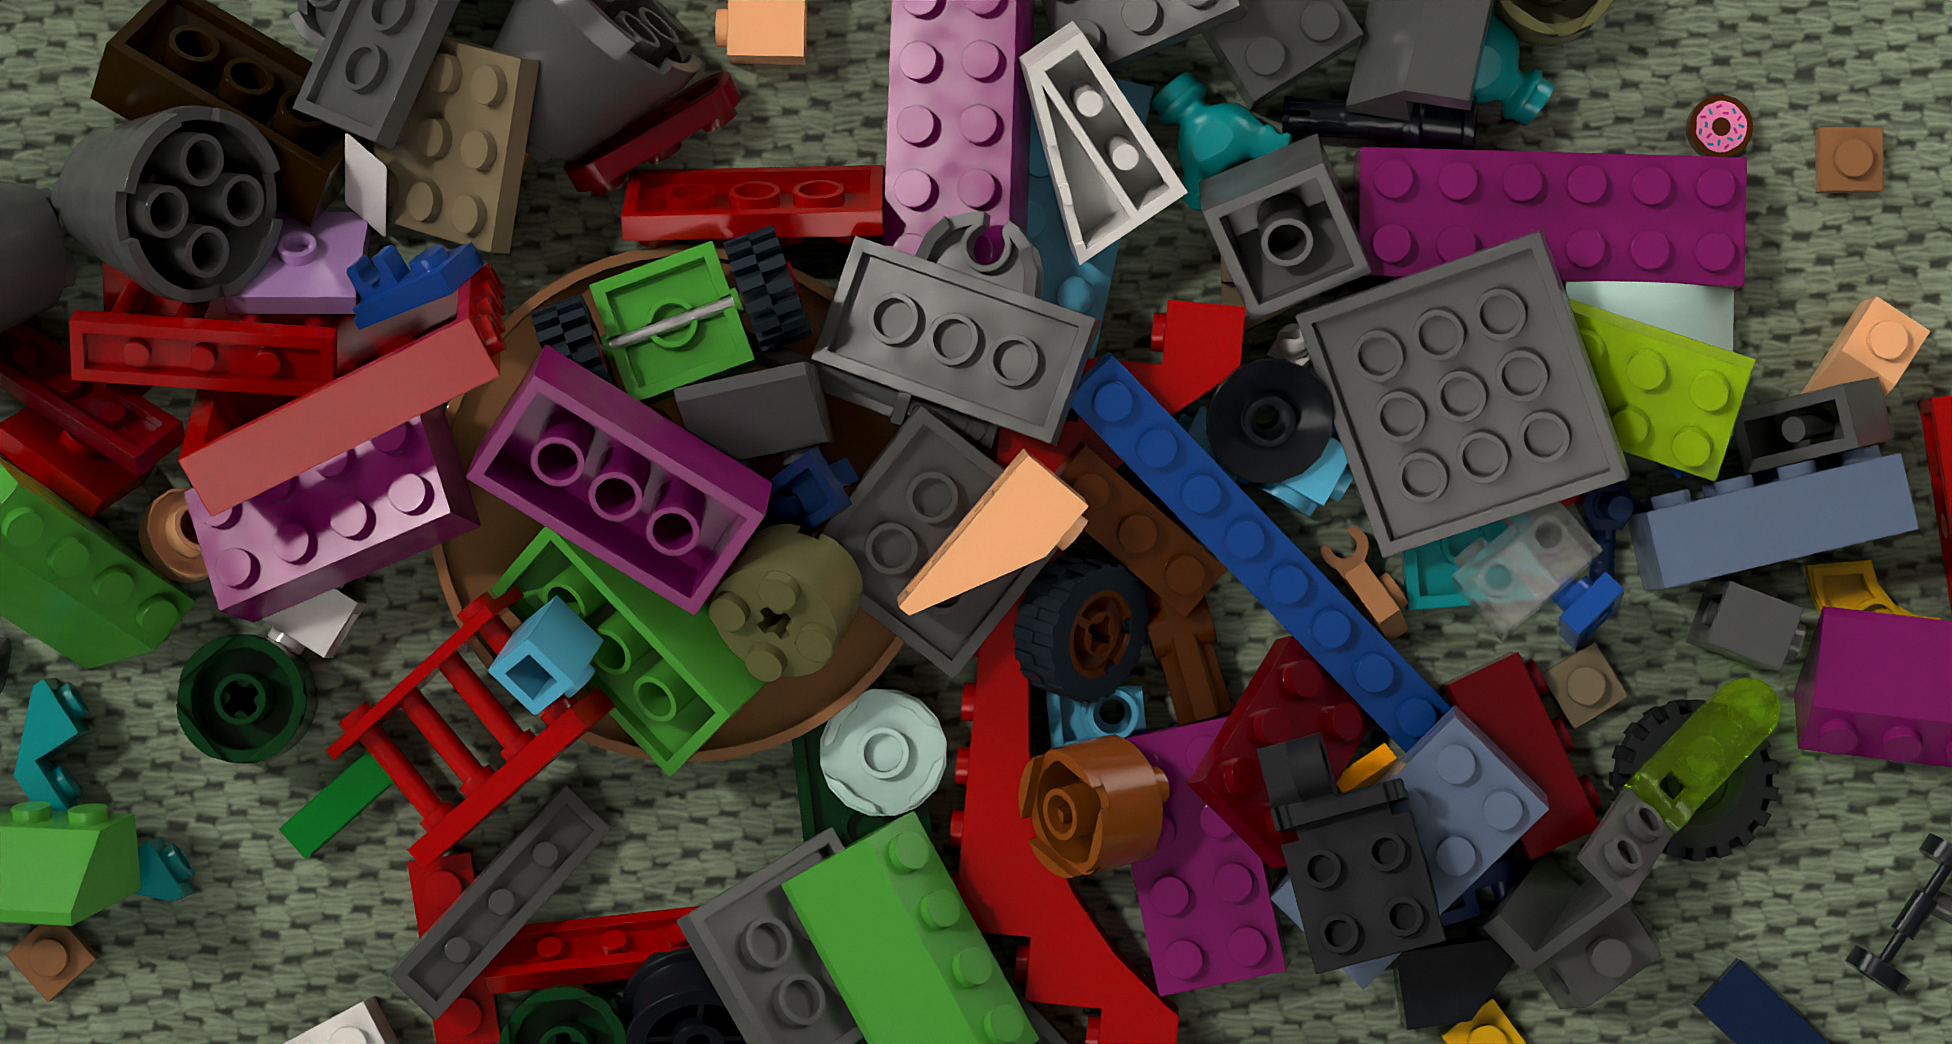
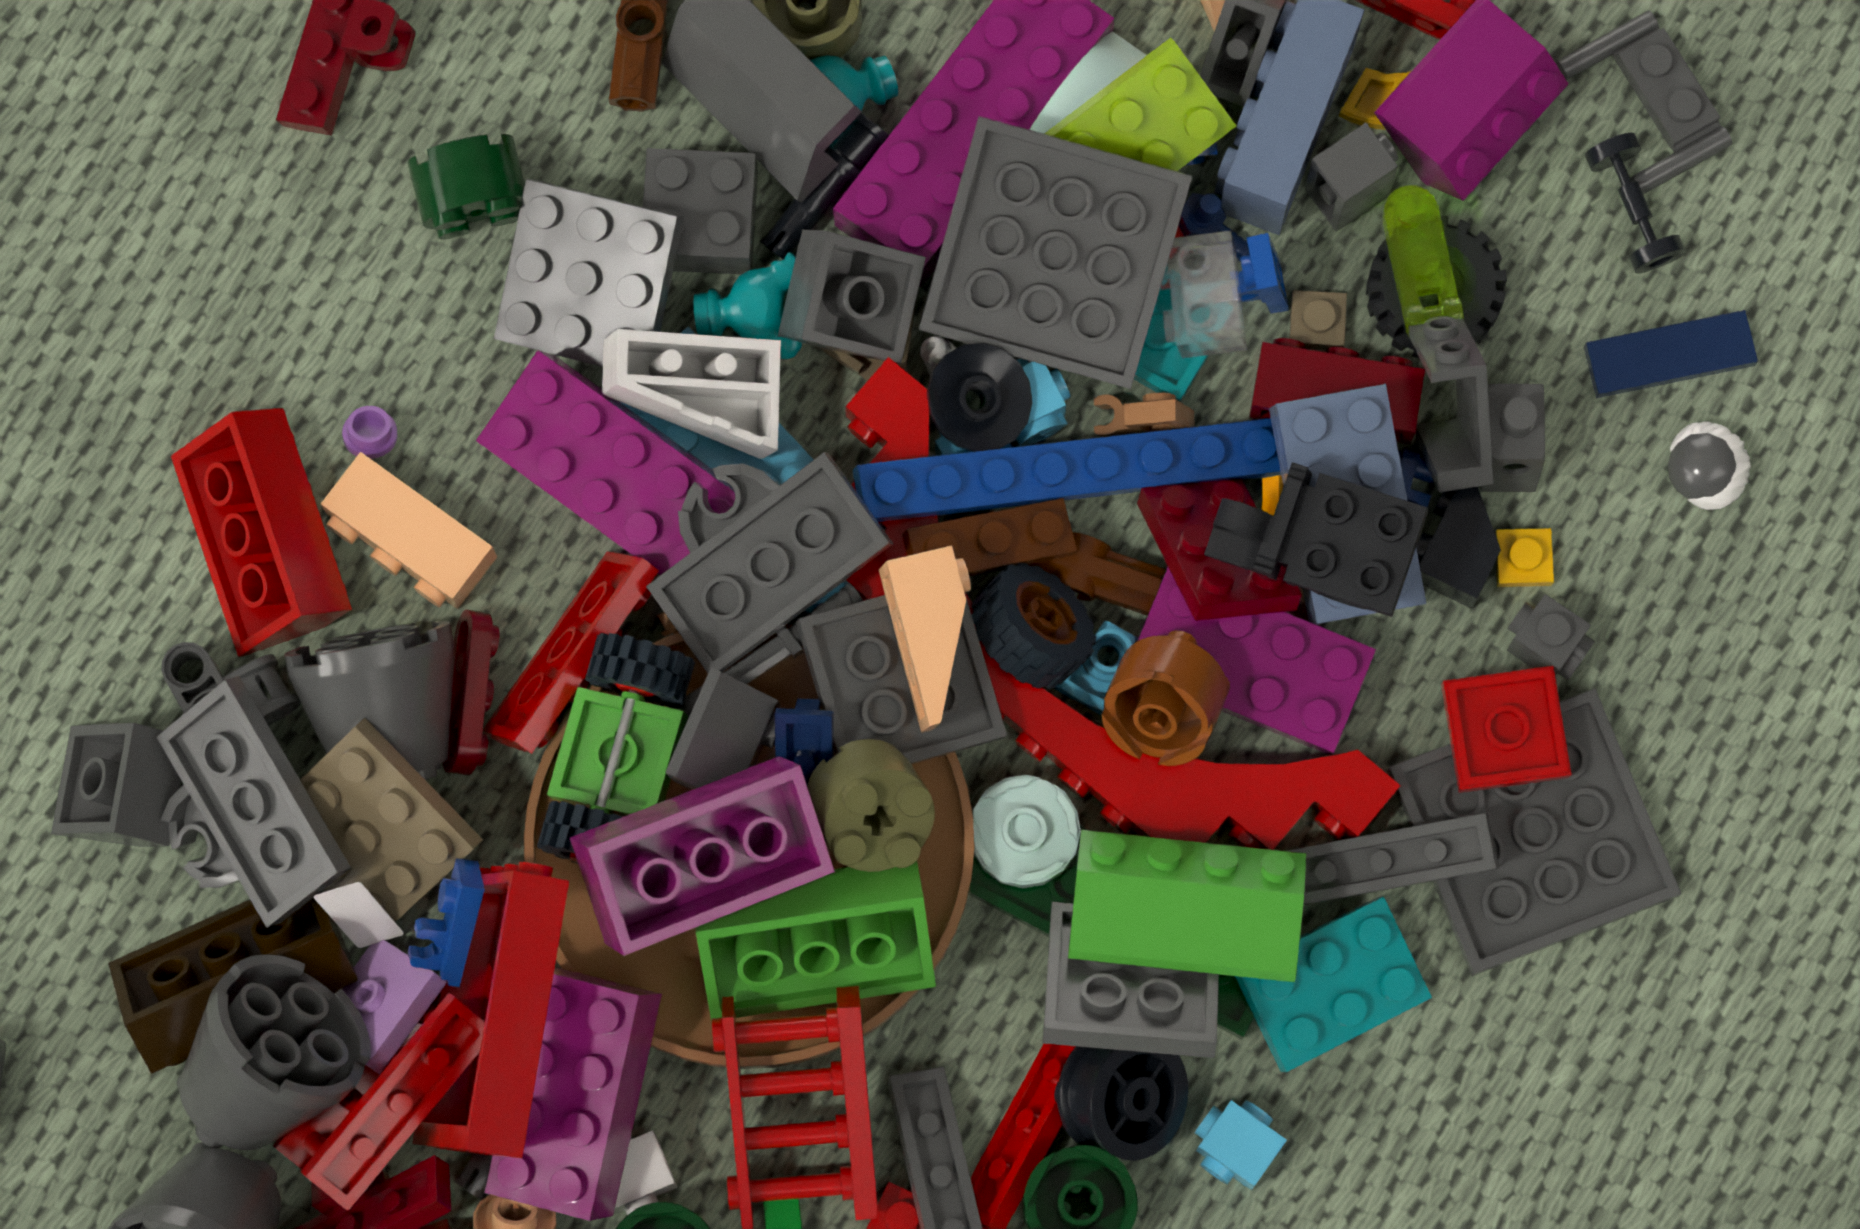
camera: 50 degrees left, 10 degrees down
(547, 656) = (789, 1000): medium azure brick -> none

